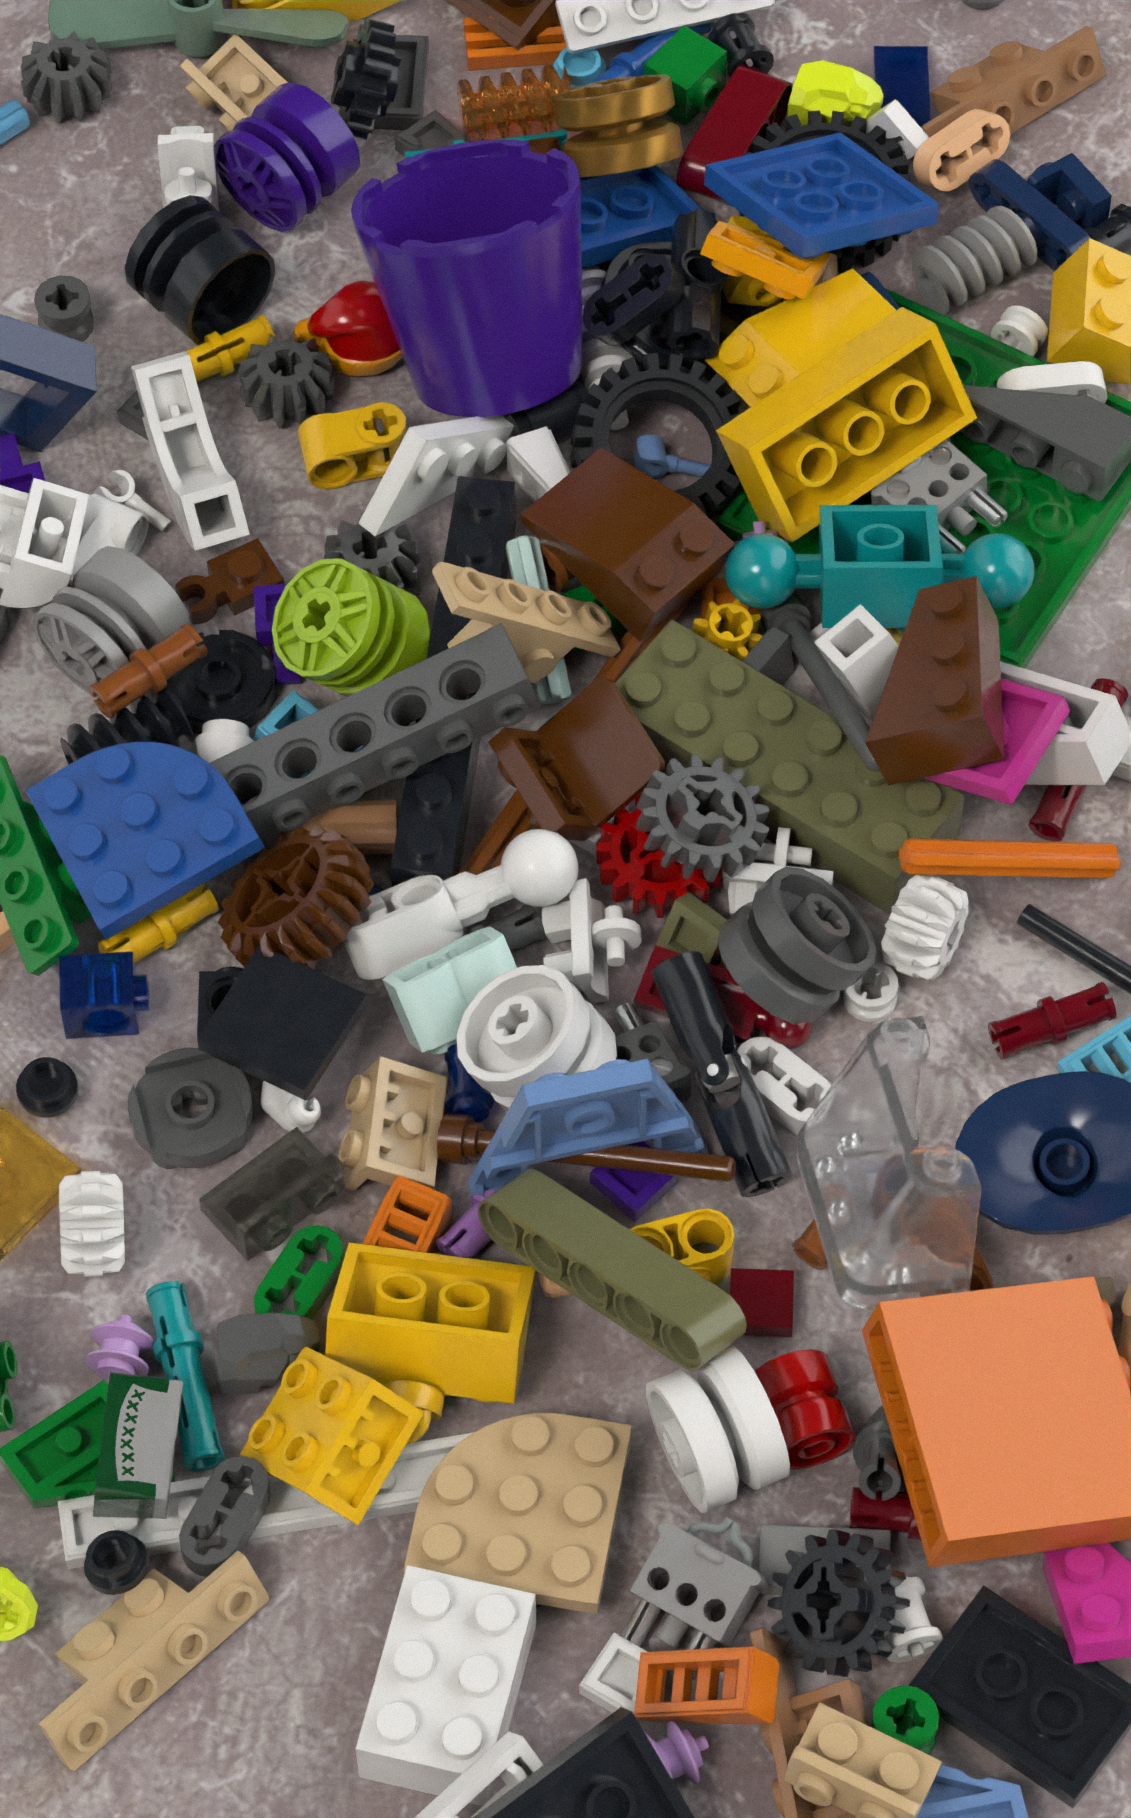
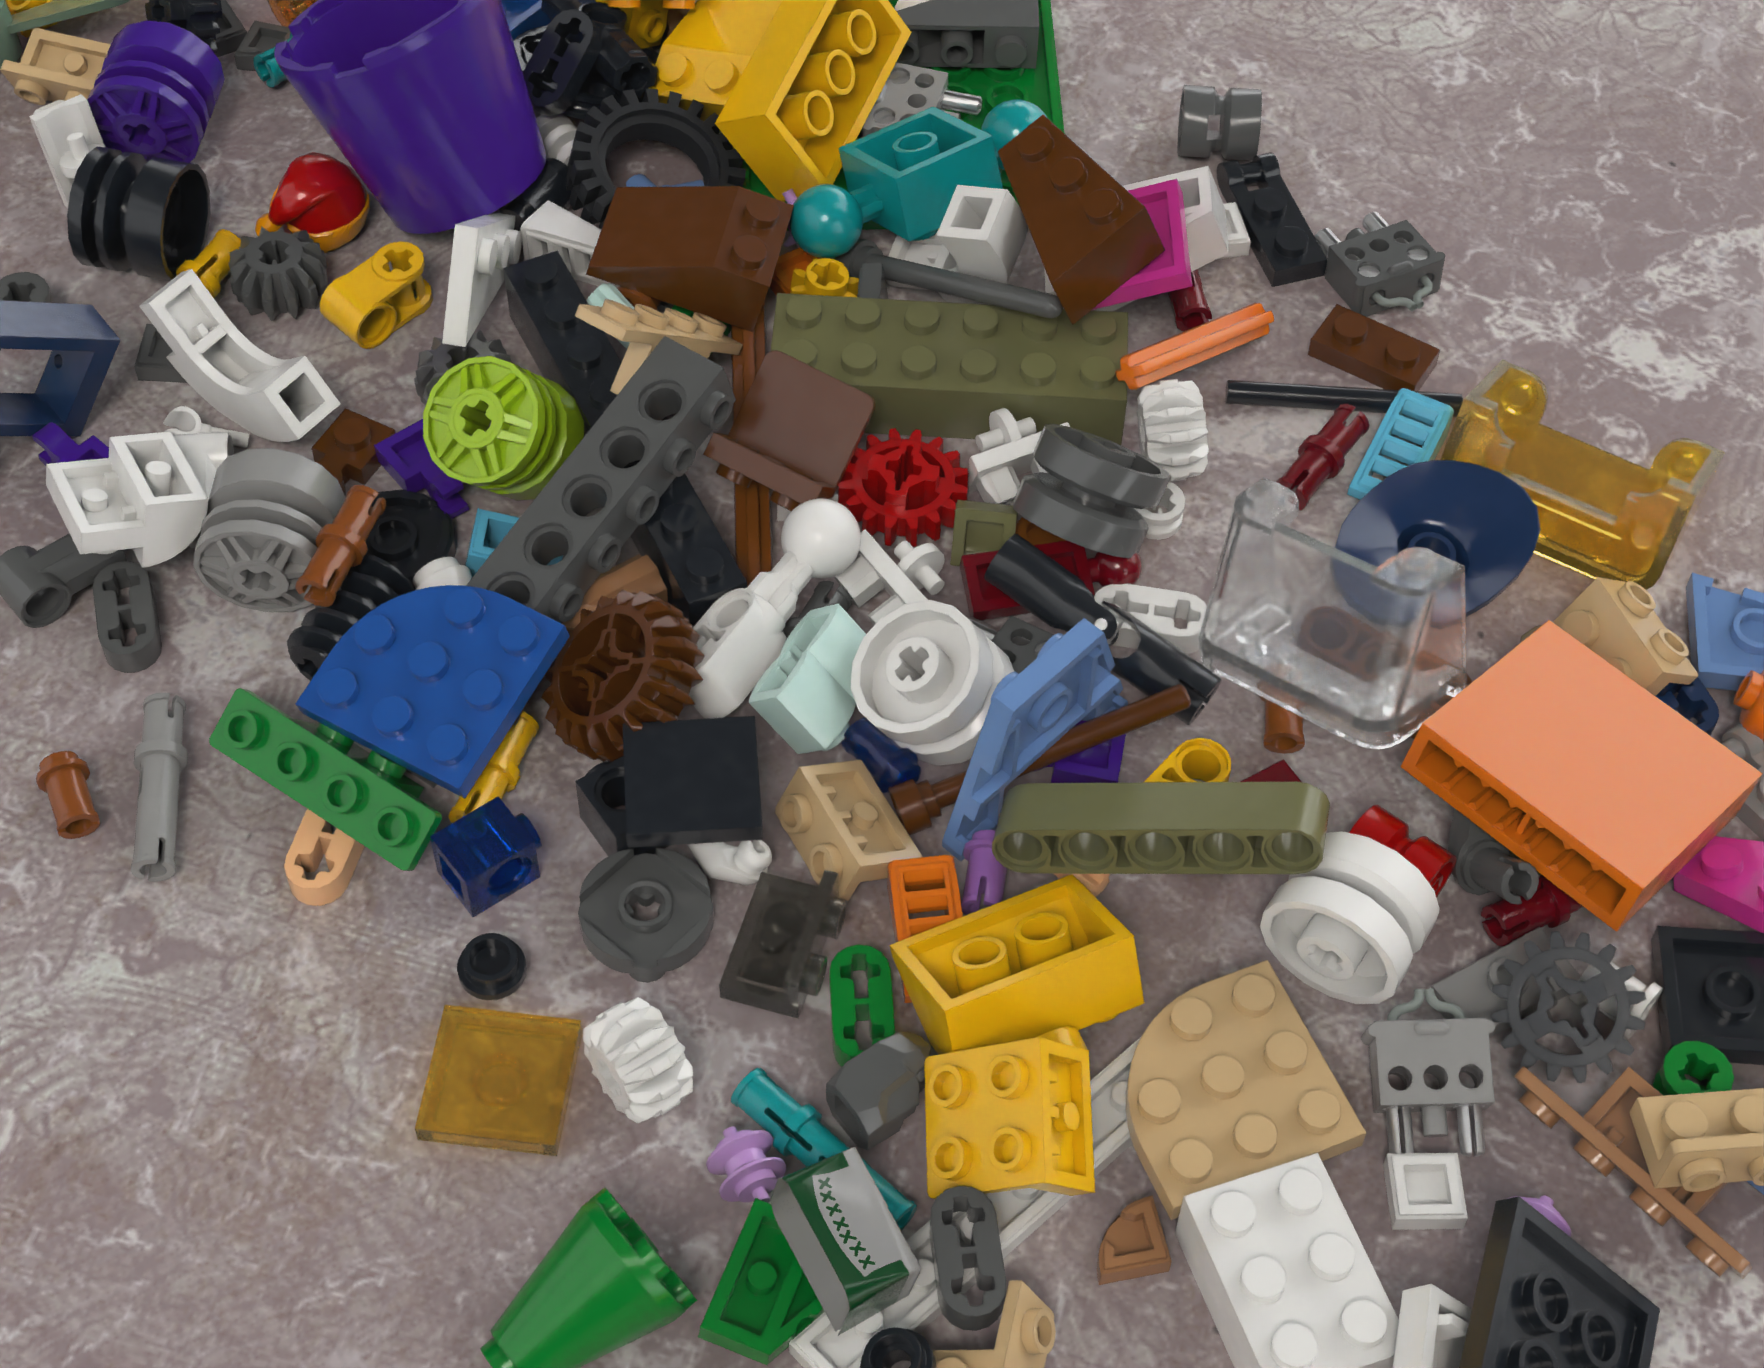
camera: 35 degrees left, 5 degrees down
(366, 1583) = (1133, 1245): none -> medium nougat tile
(702, 818) = (934, 427): dark grey gear -> none
(747, 1689) = (1528, 1110): orange slope -> none

